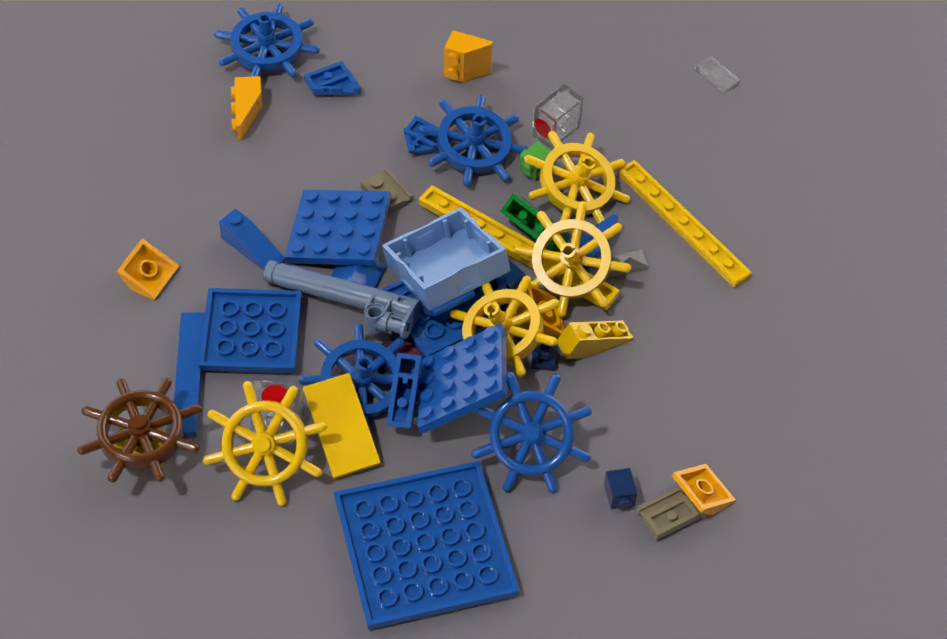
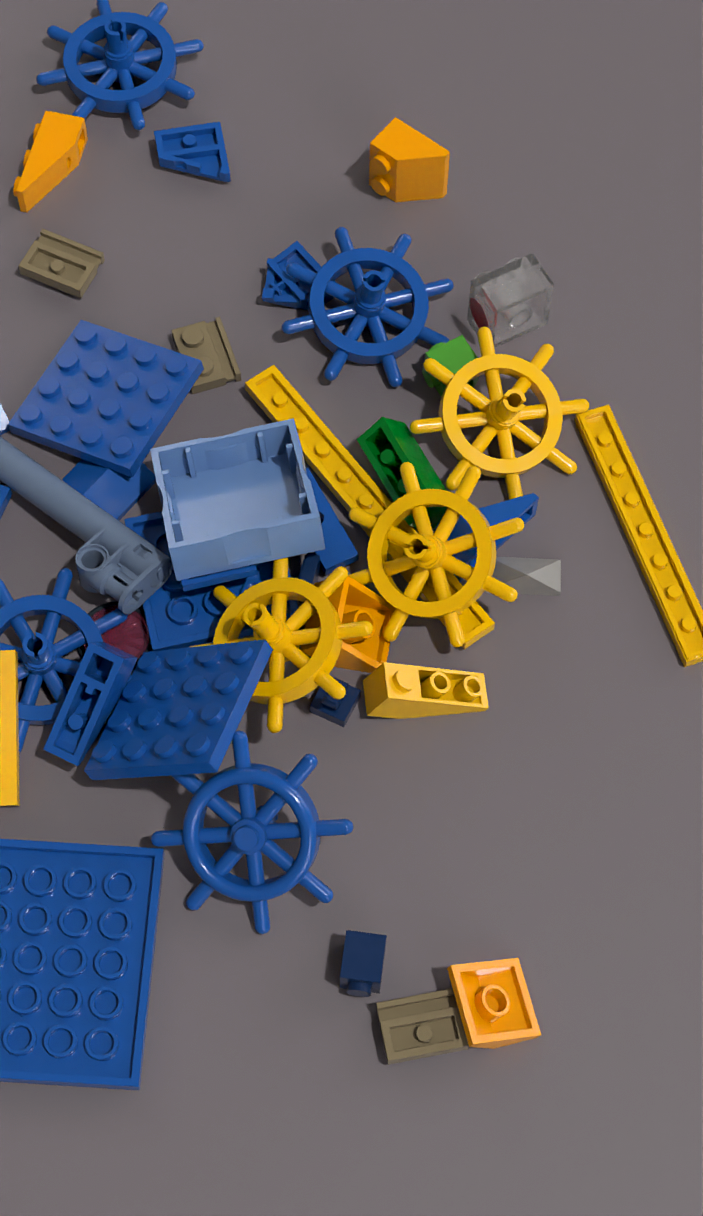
camera: 20 degrees right, 10 degrees up
(277, 161) = (61, 263): none -> dark tan plate

